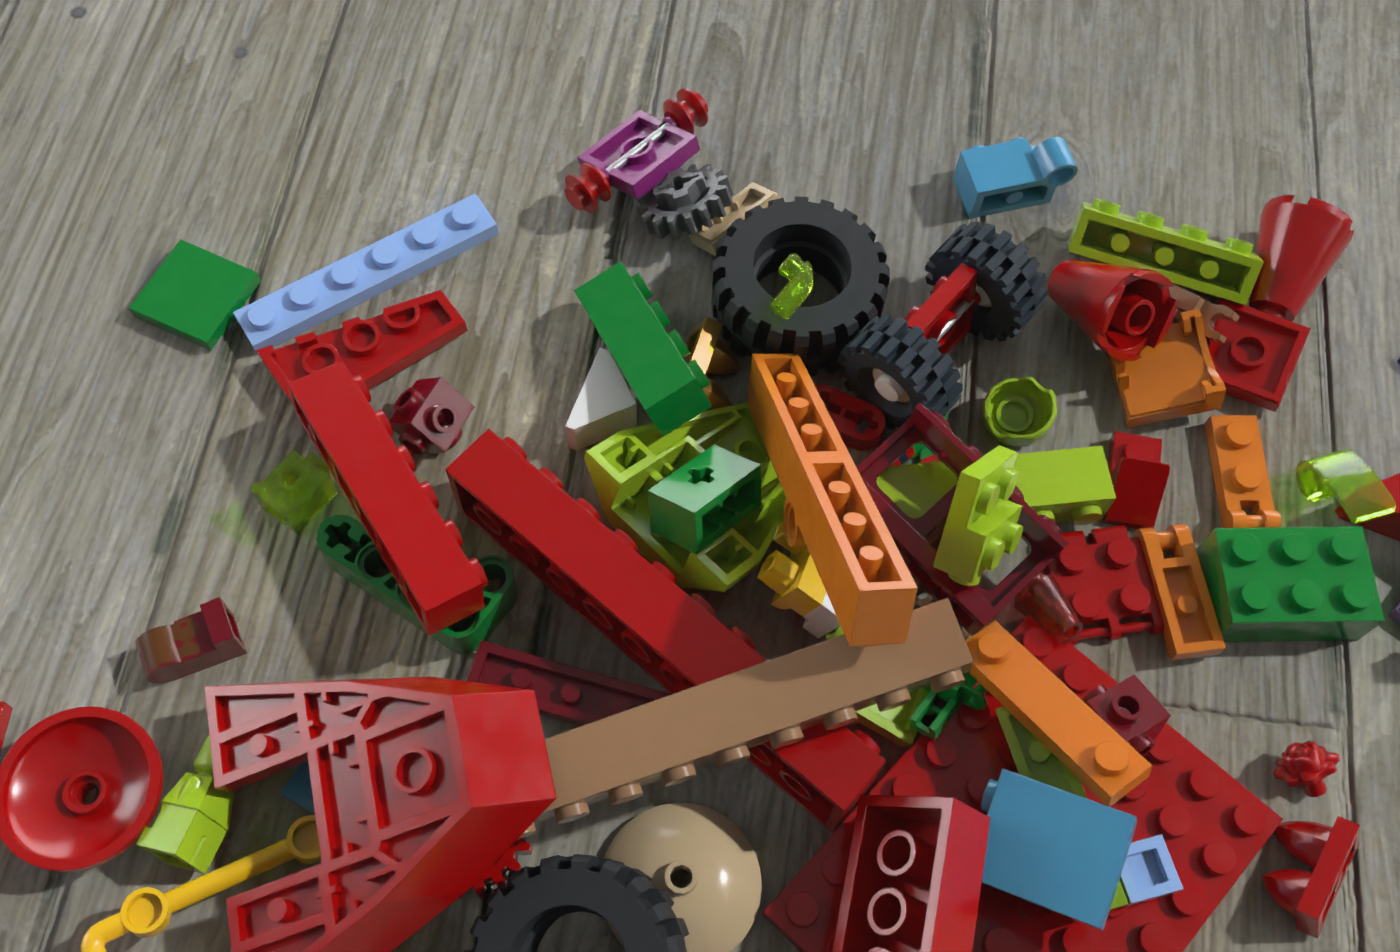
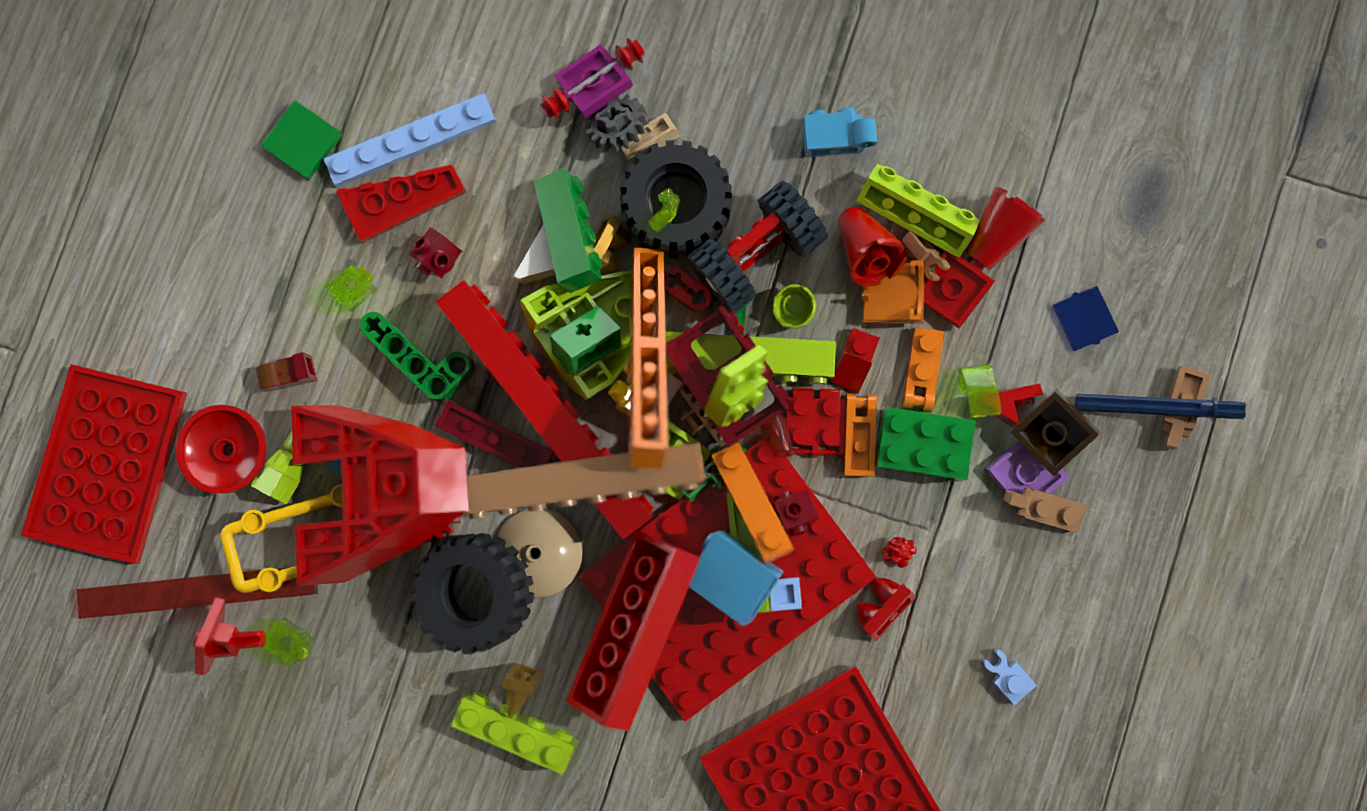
camera: 20 degrees right, 20 degrees up
(388, 498) = (400, 305): red brick -> none

